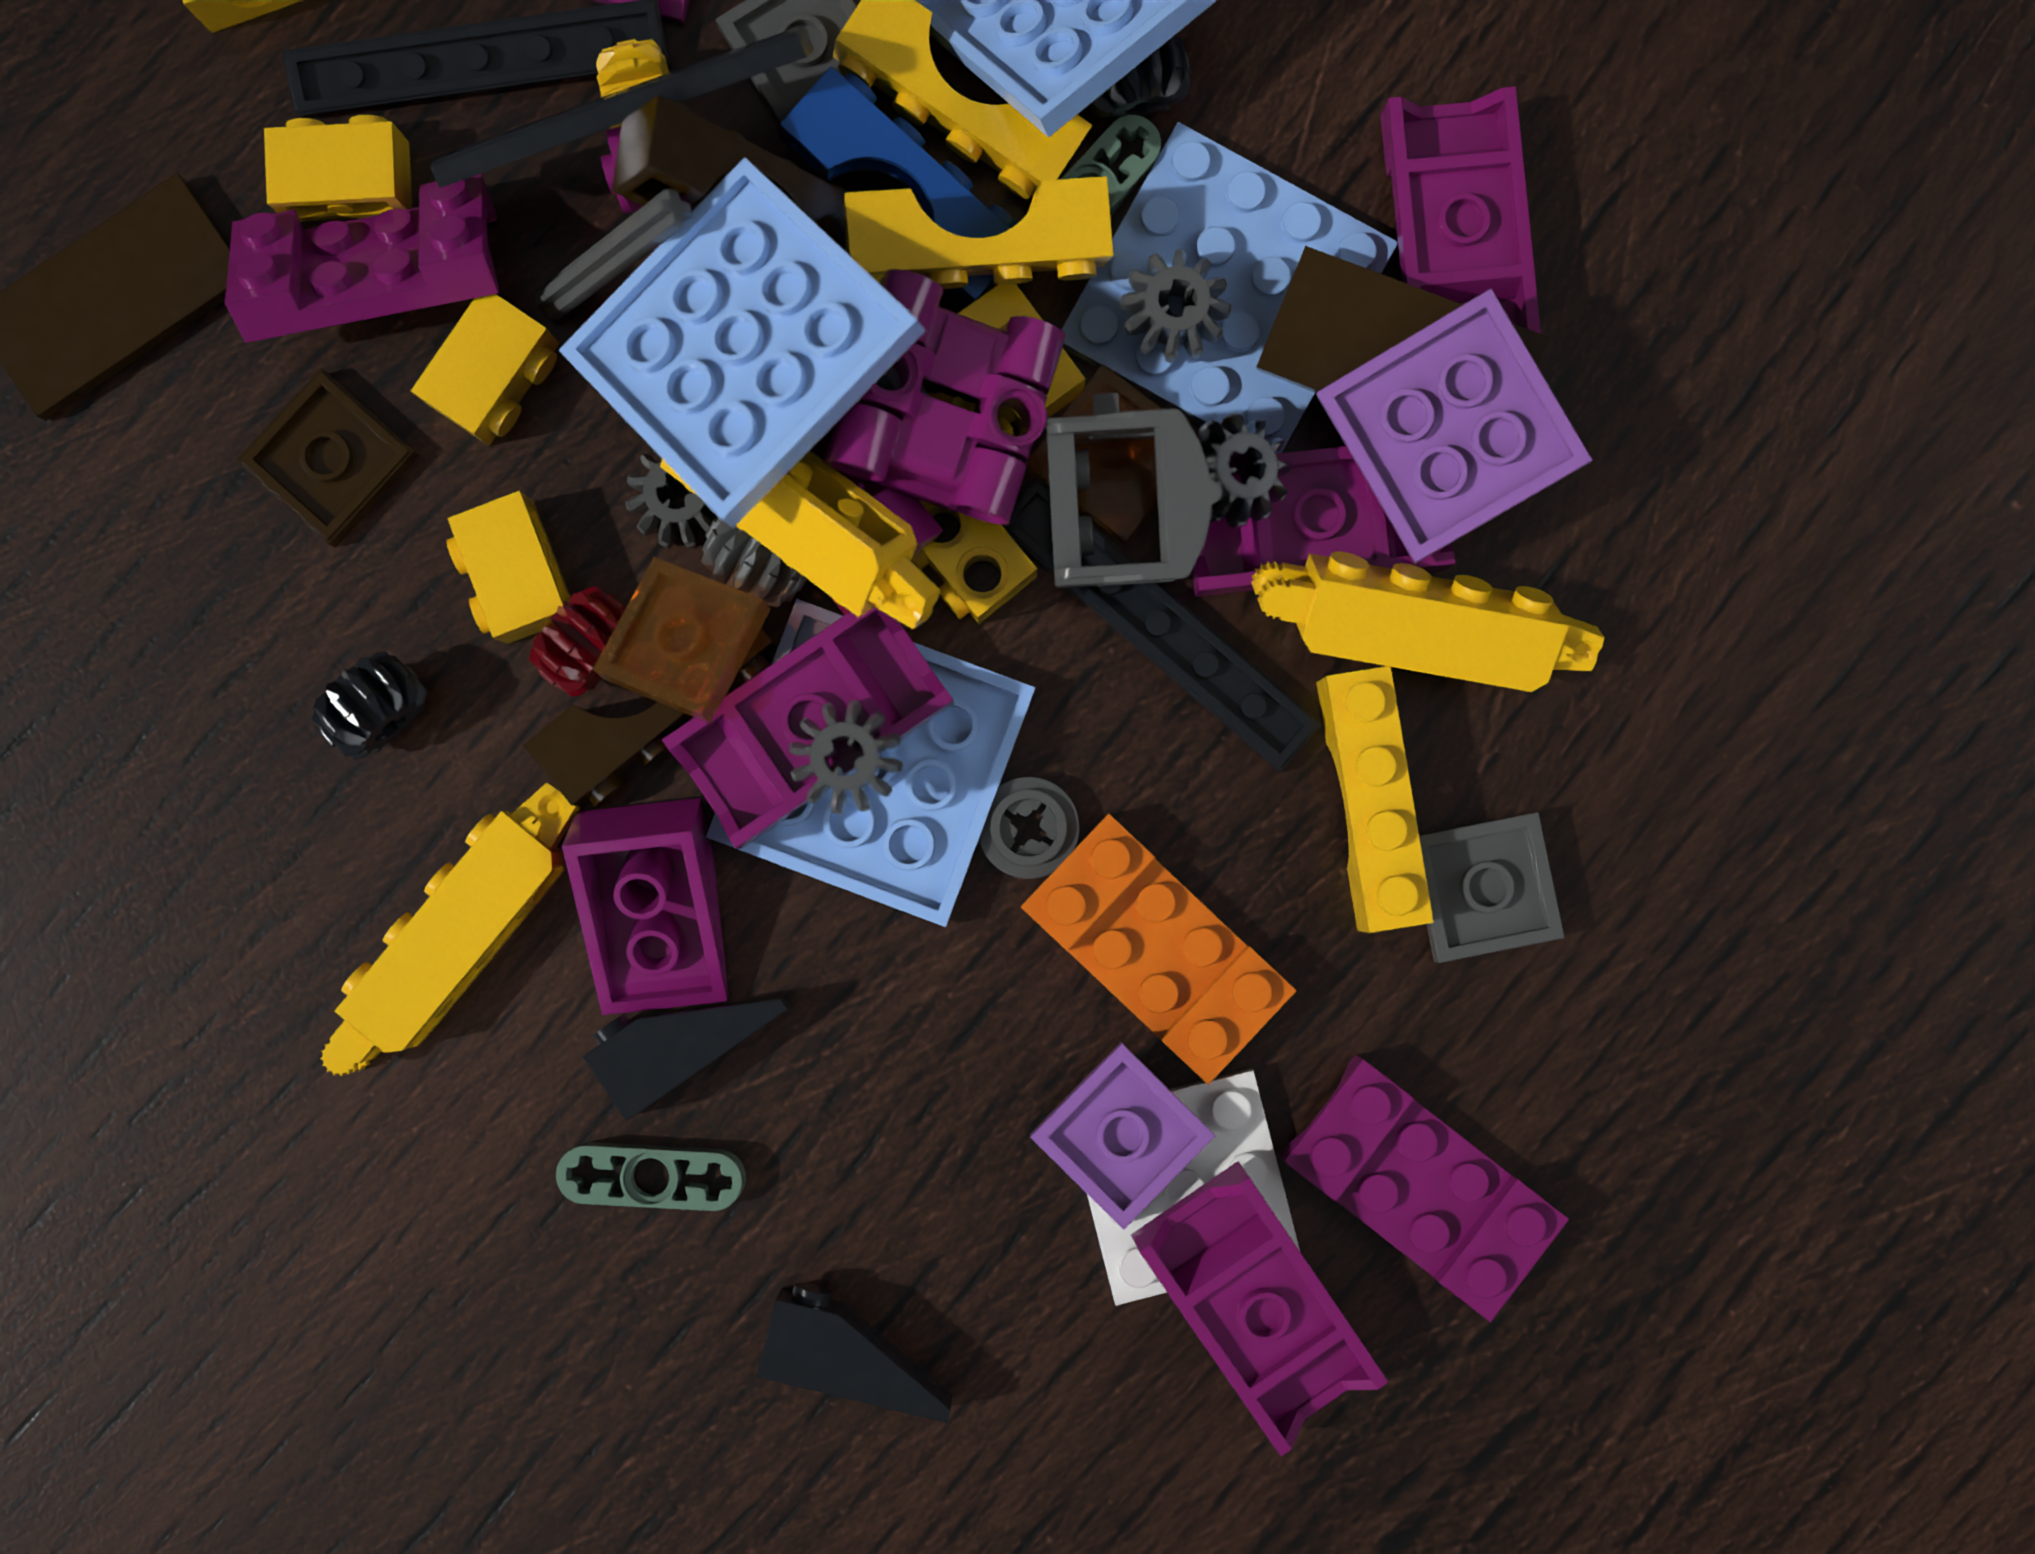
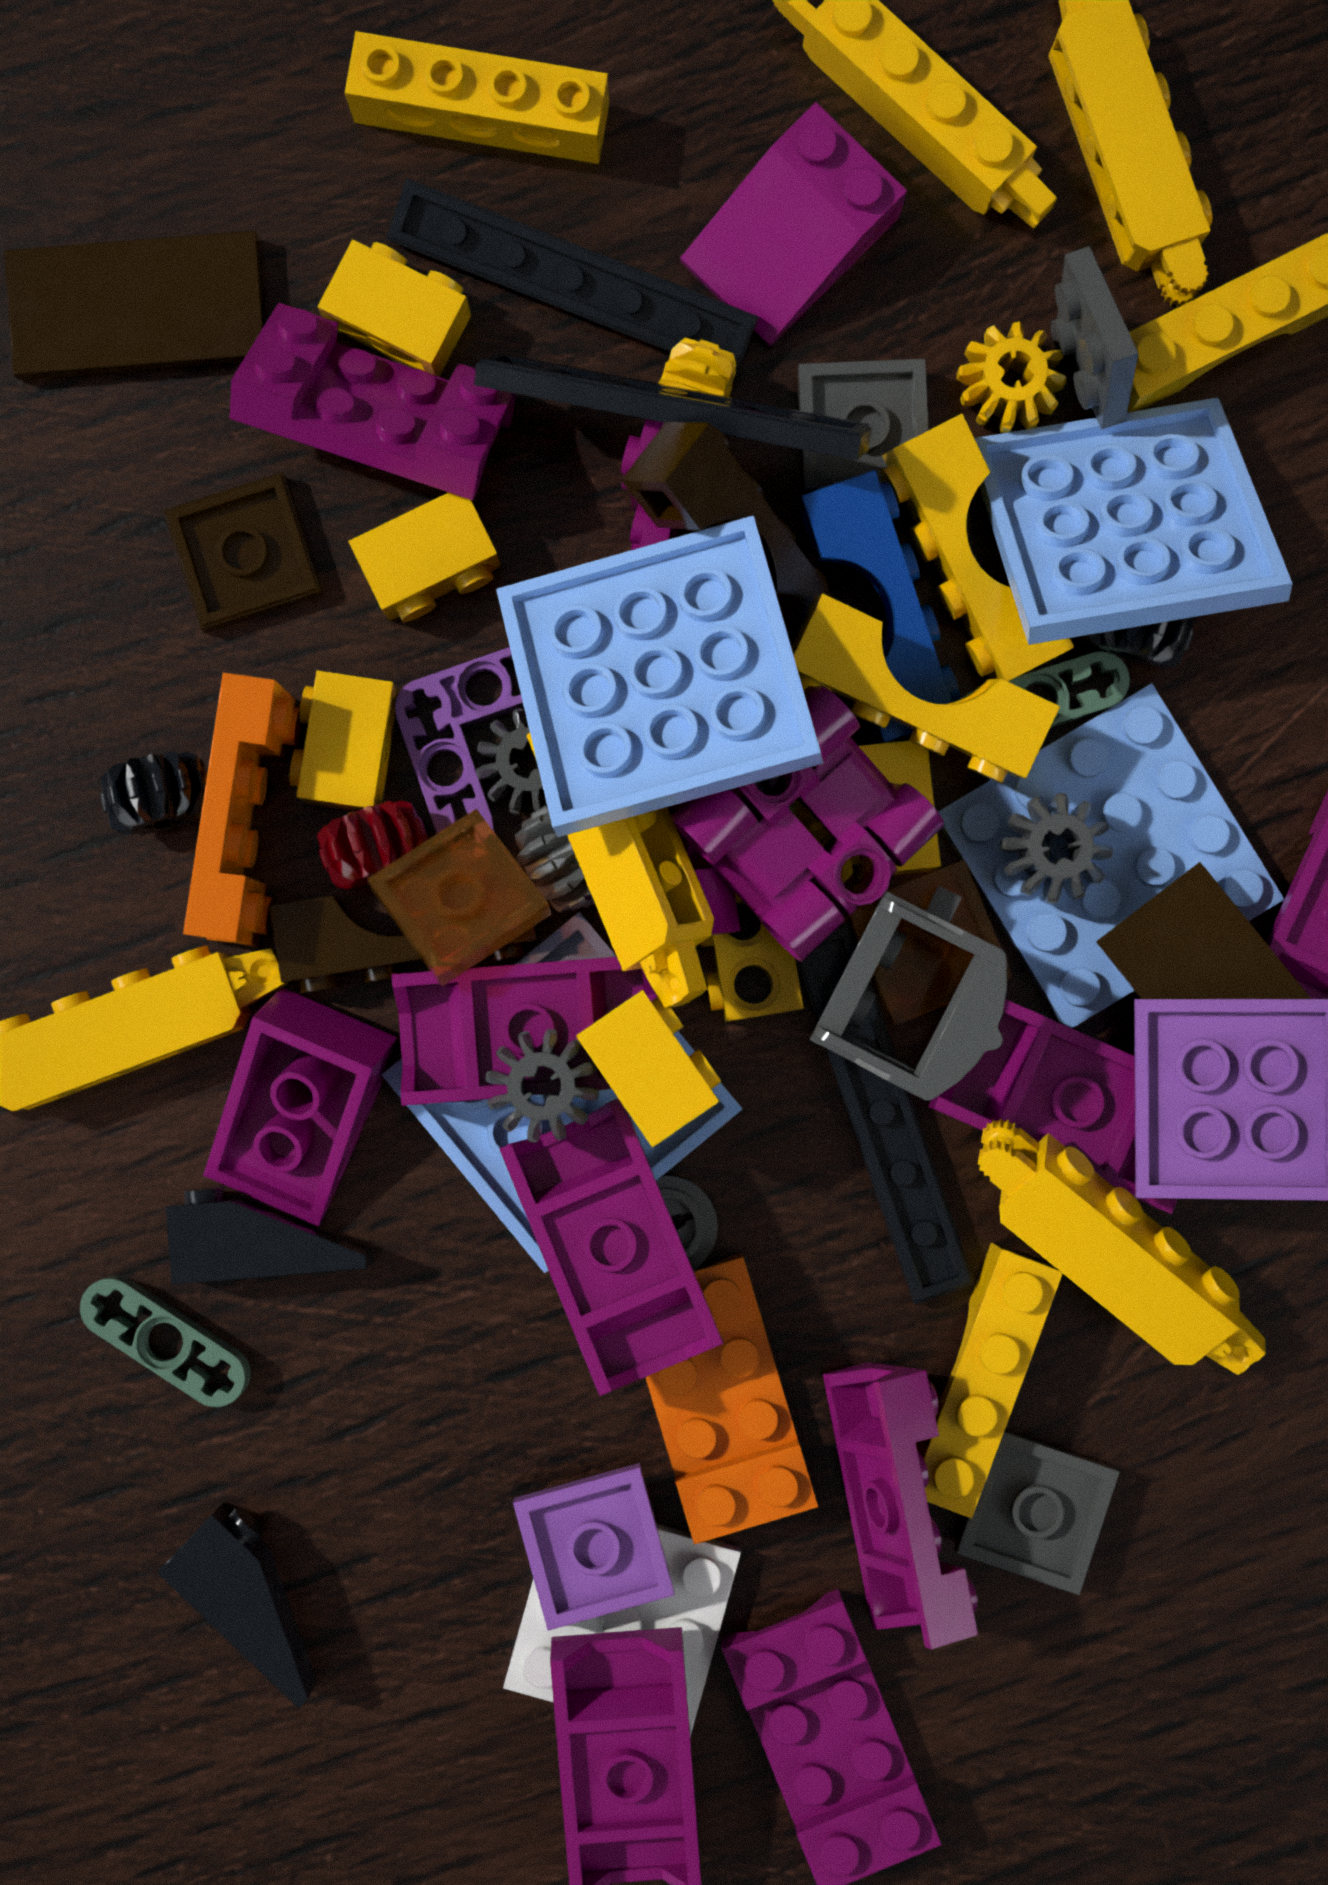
camera: 25 degrees right, 0 degrees up
(418, 601) = (251, 722): none -> orange piece
(593, 491) = (456, 713): none -> medium lavender beam
(613, 254) = (591, 527): dark grey axle -> none
(929, 687) = (649, 1066): none -> yellow brick
(989, 867) = (612, 1248): none -> magenta piece
(1256, 466) = (1045, 1033): black gear -> none
(1340, 934) = (876, 1424): none -> magenta piece

